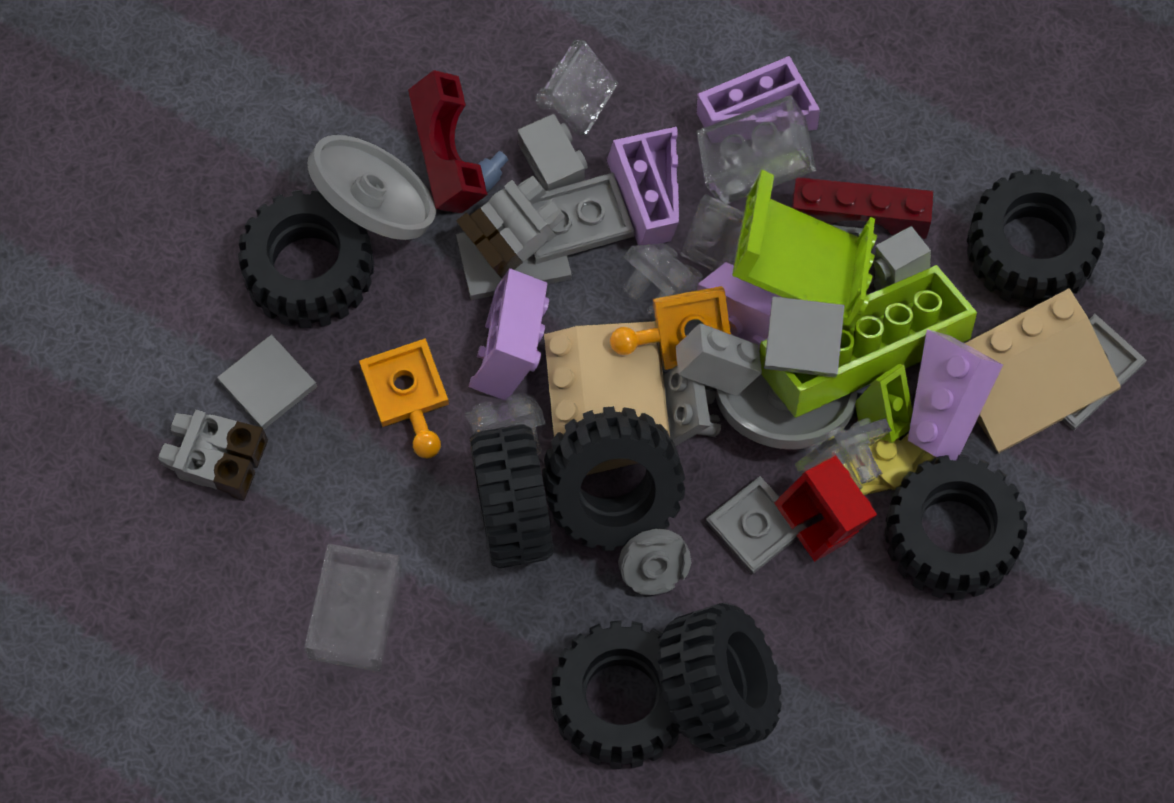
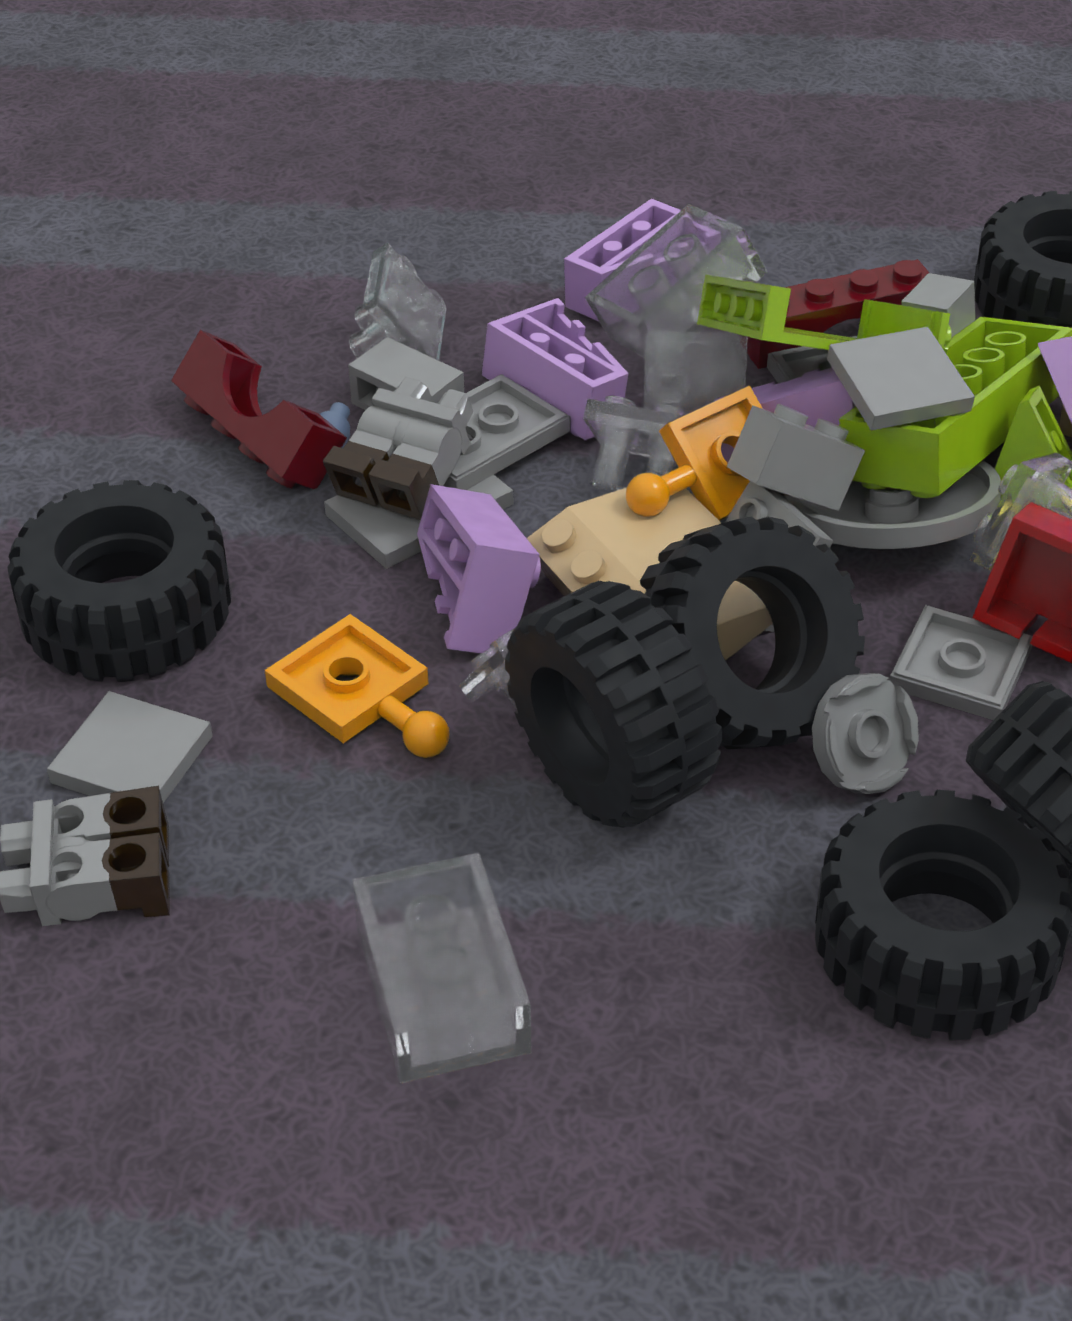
camera: 25 degrees left, 25 degrees down
(371, 187) = (178, 465): light grey dish -> none

